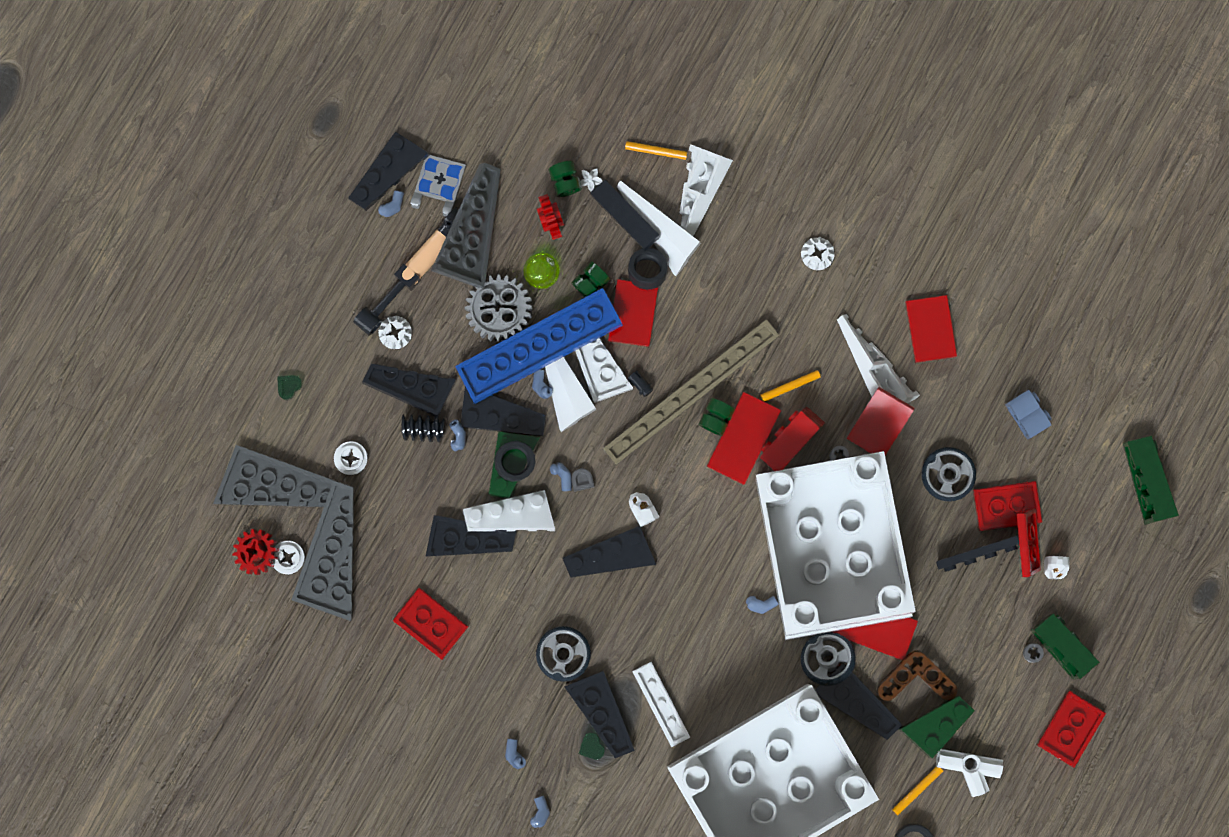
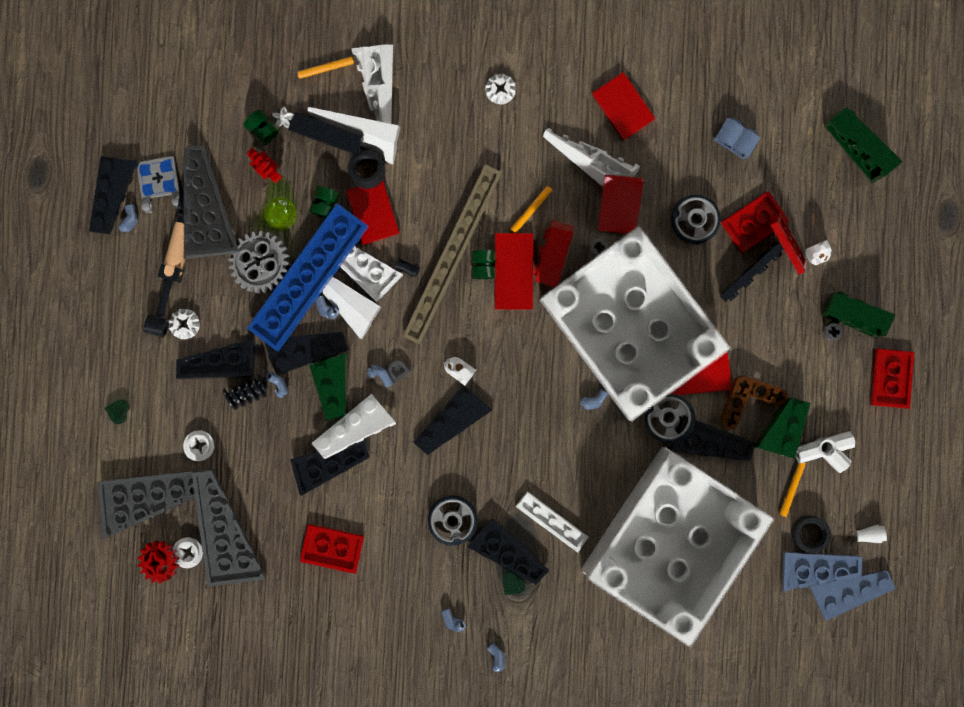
camera: 30 degrees left, 5 degrees up
(499, 463) = (330, 369): black tyre -> none

